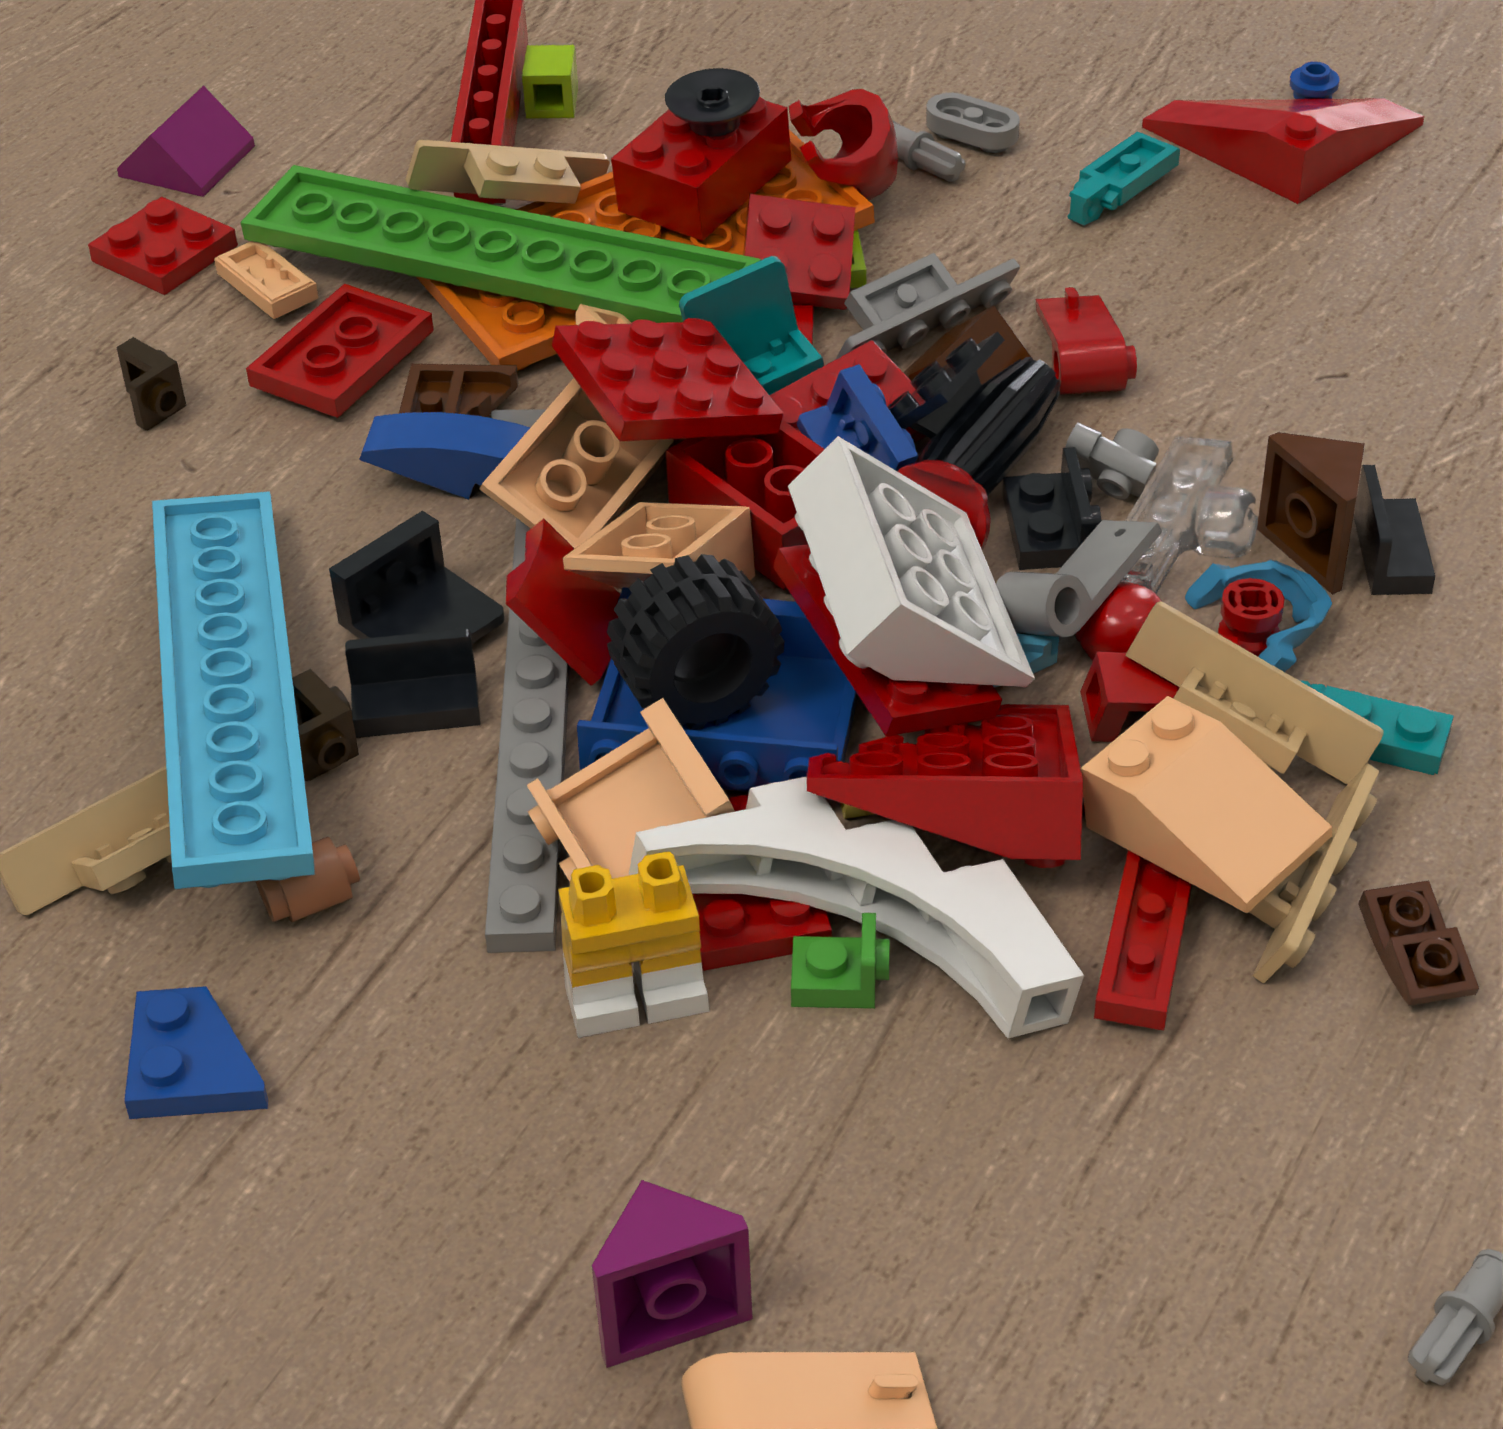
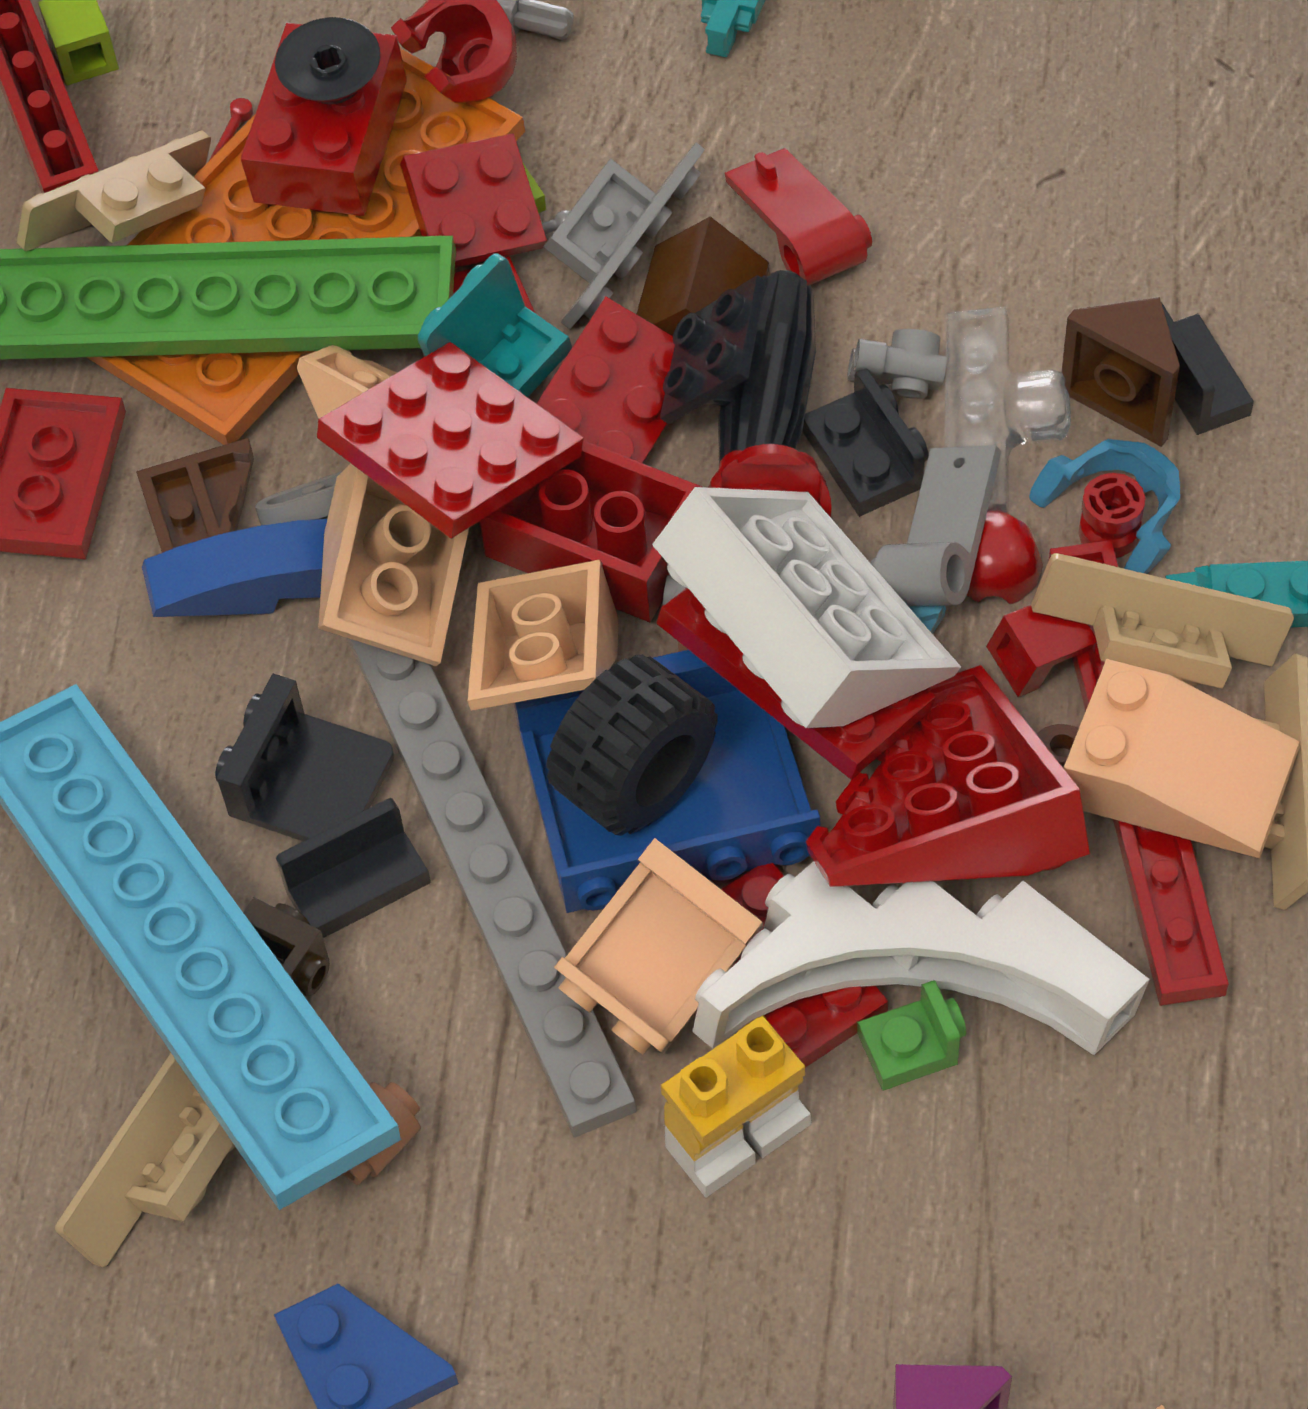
camera: 20 degrees left, 15 degrees up
(560, 605) = (469, 745): red slope -> none
(862, 418) = (659, 427): blue bracket -> none

